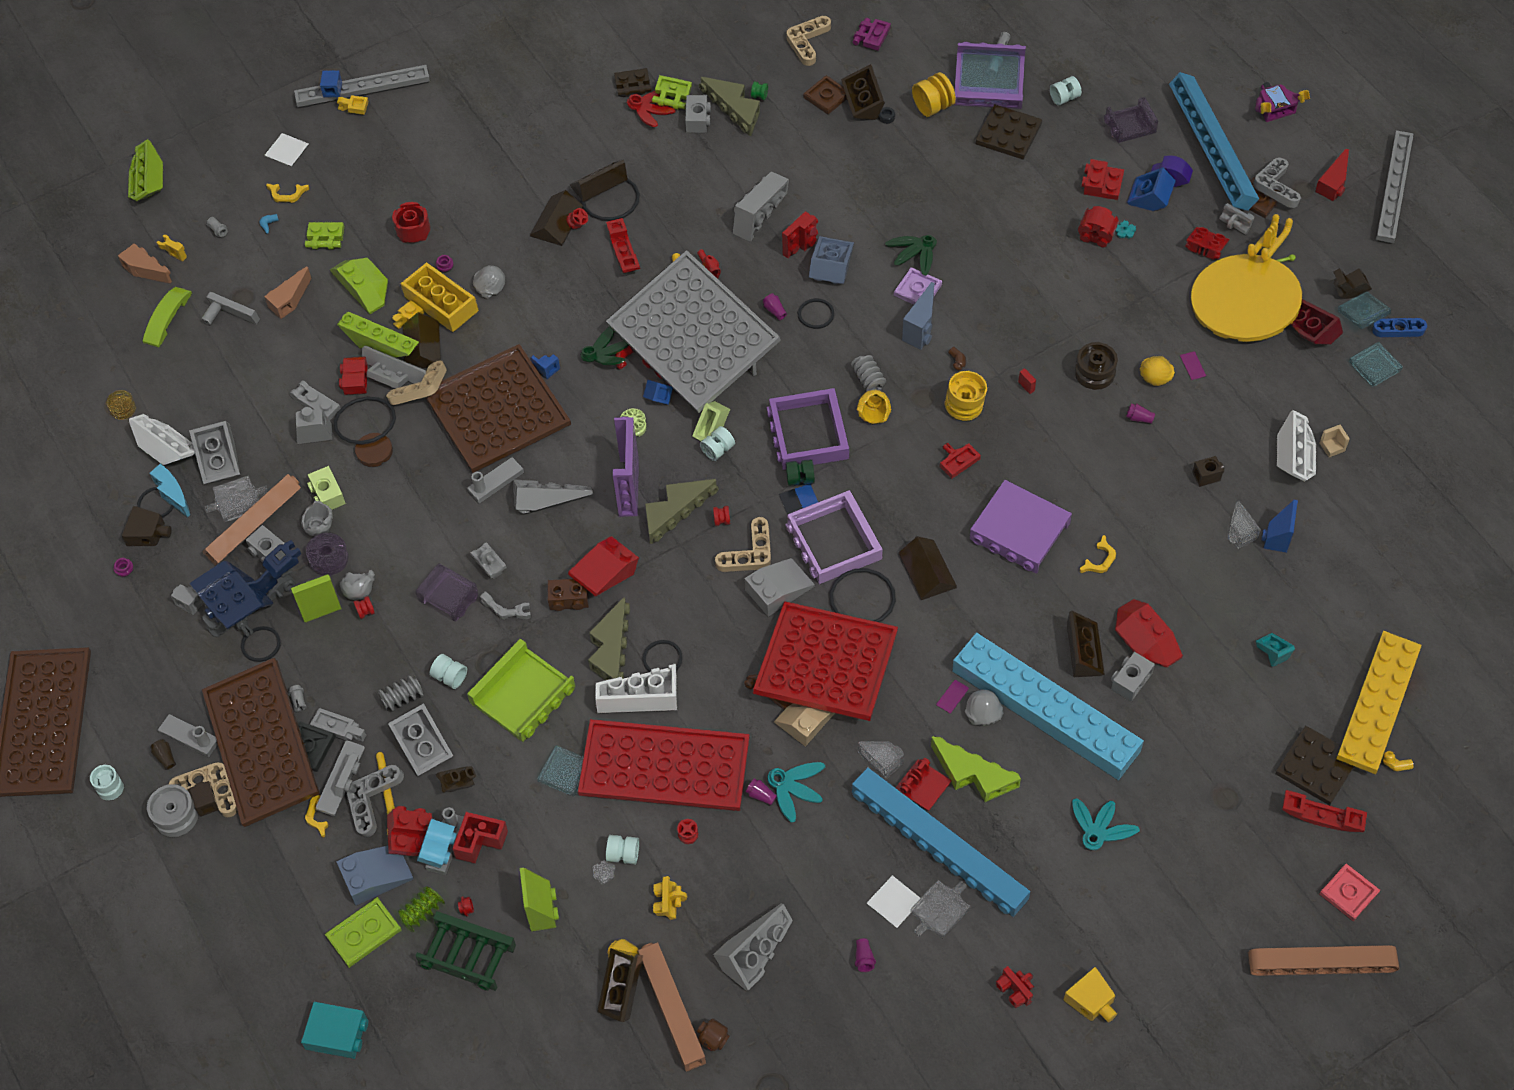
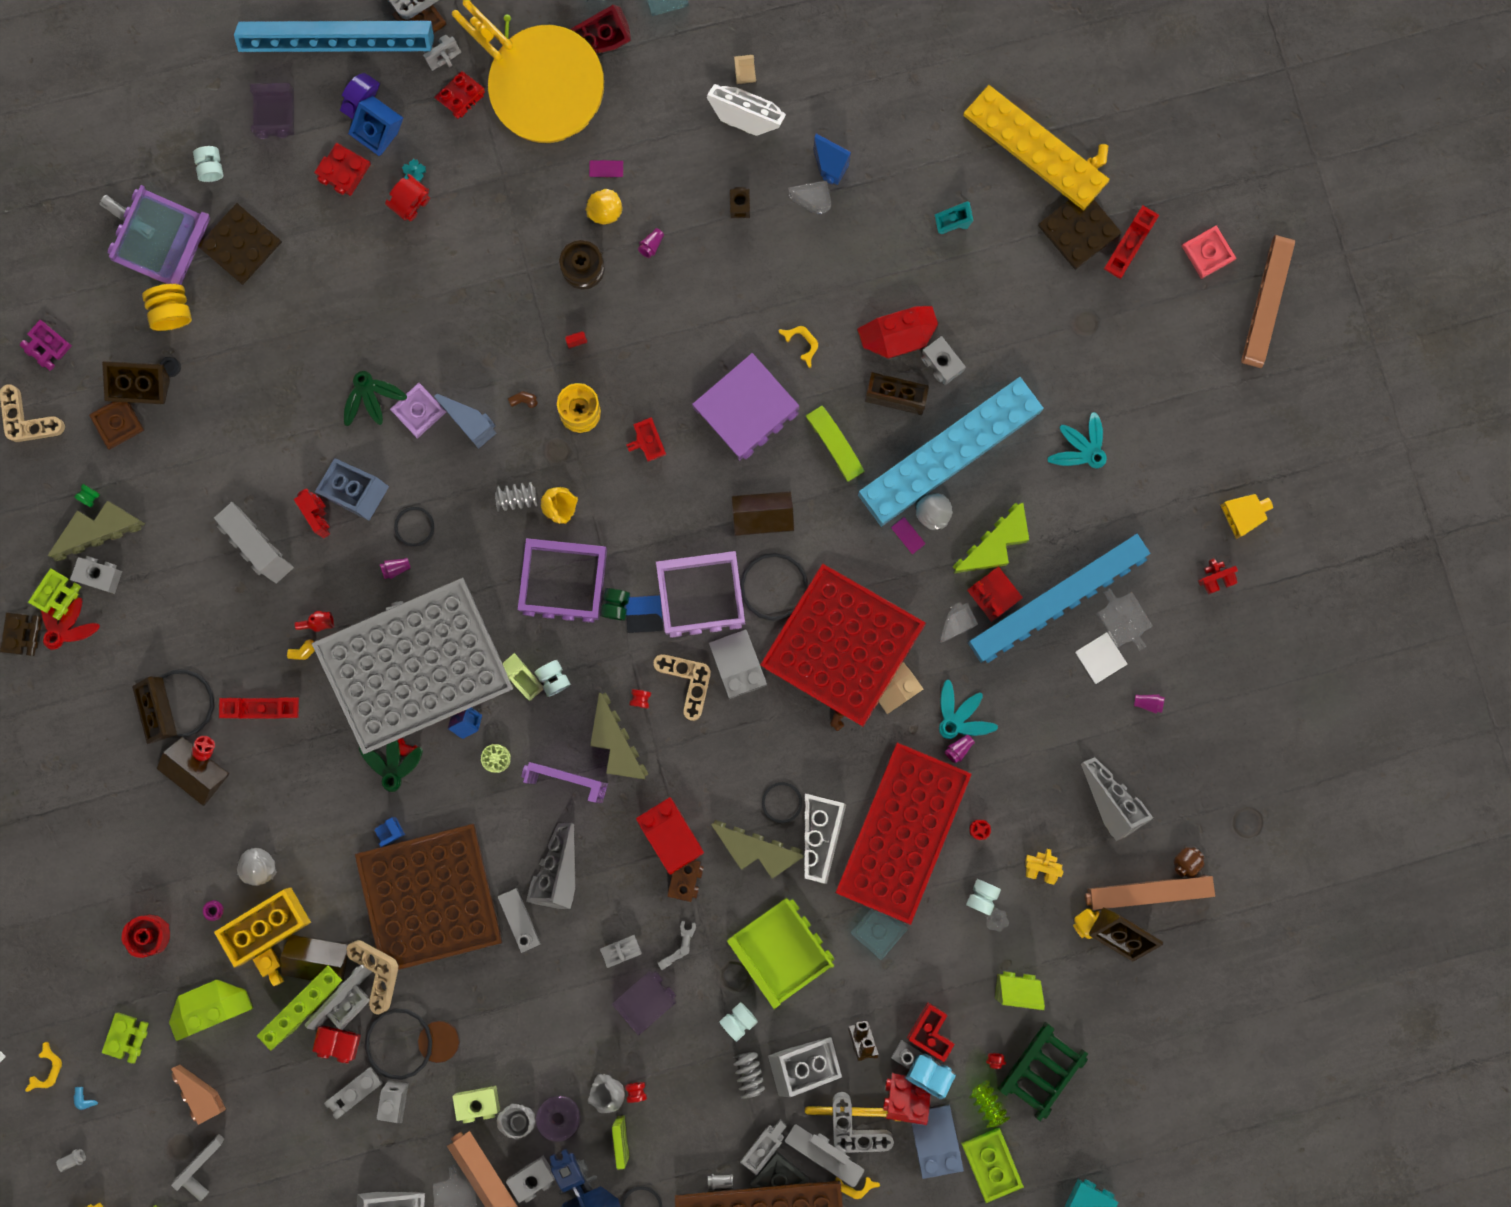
camera: 75 degrees left, 25 degrees up
(1014, 609) = (835, 443): none -> lime slope

